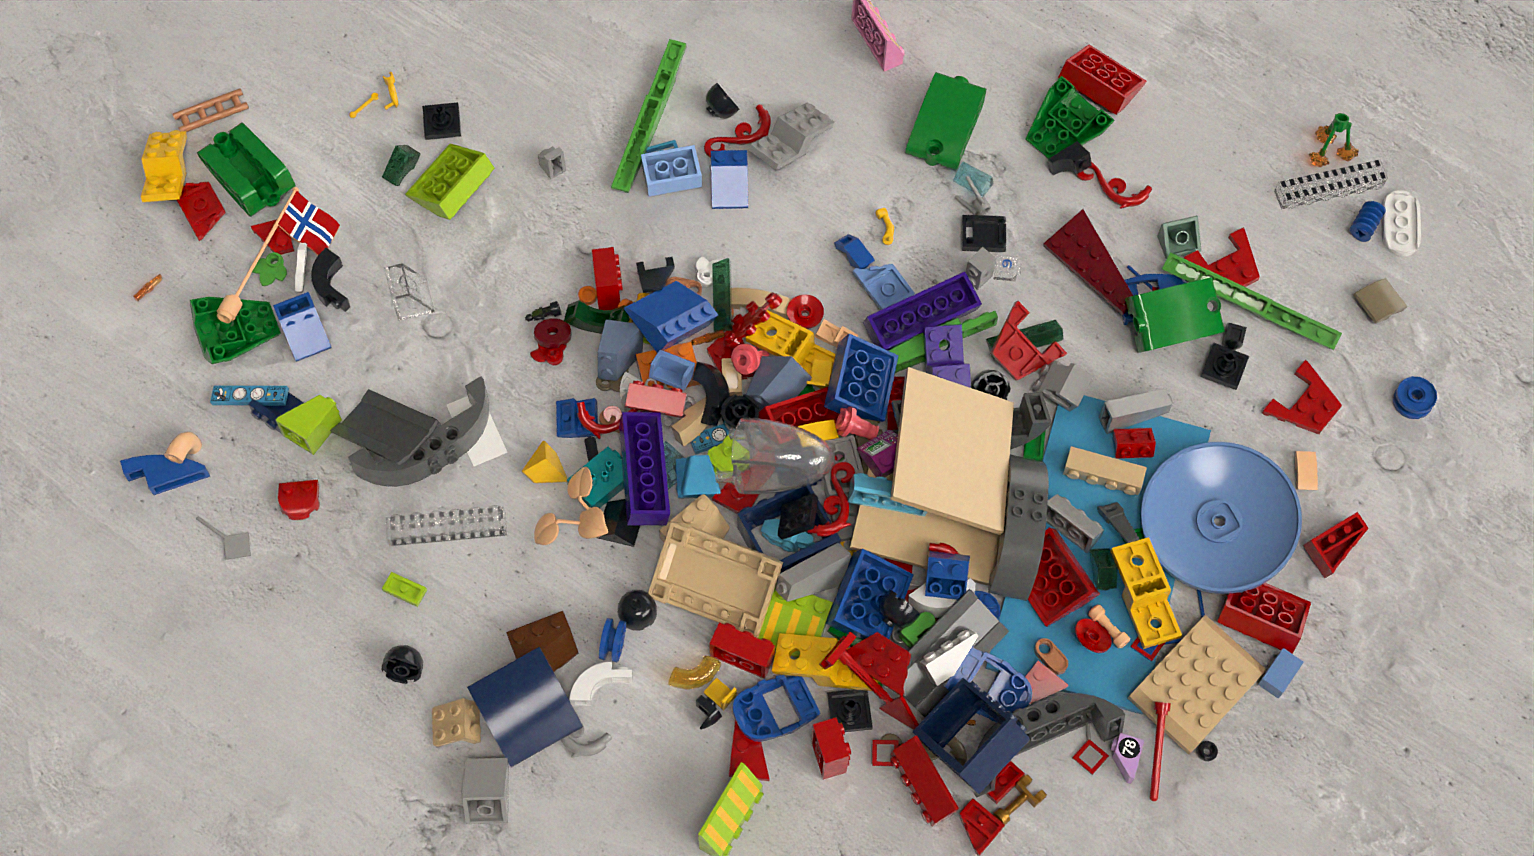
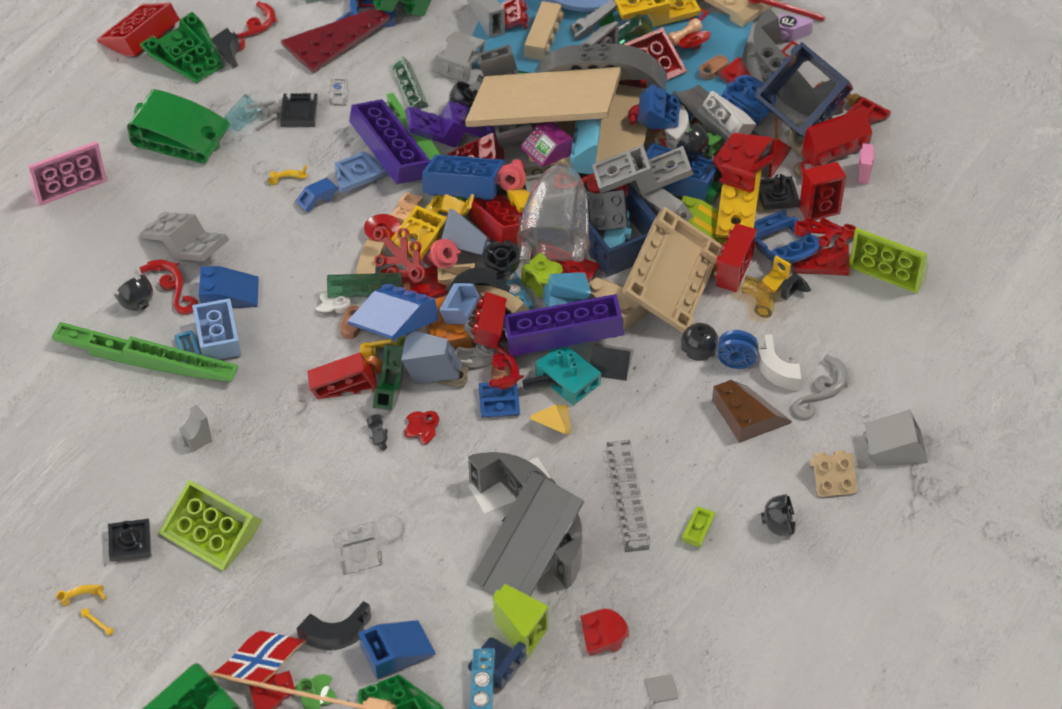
camera: 90 degrees left, 15 degrees down
(300, 269) = (317, 657): white tile -> none
(400, 164) = (185, 569): clear green arch -> none
(525, 707) = (812, 411): dark blue slope -> none
(552, 325) = (400, 413): dark red tile -> none
(587, 295) = (357, 399): orange tile -> none
(591, 521) = (582, 377): light nougat plant -> none
(654, 278) = (342, 337): black flag -> none
(781, 755) = (825, 227): none -> red plant
(838, 545) = (647, 172): none -> light grey bracket
(888, 809) = (865, 163): none -> bright pink brick
(980, 268) = (340, 102): light grey brick -> none
(1015, 350) = (425, 82): red wing -> none

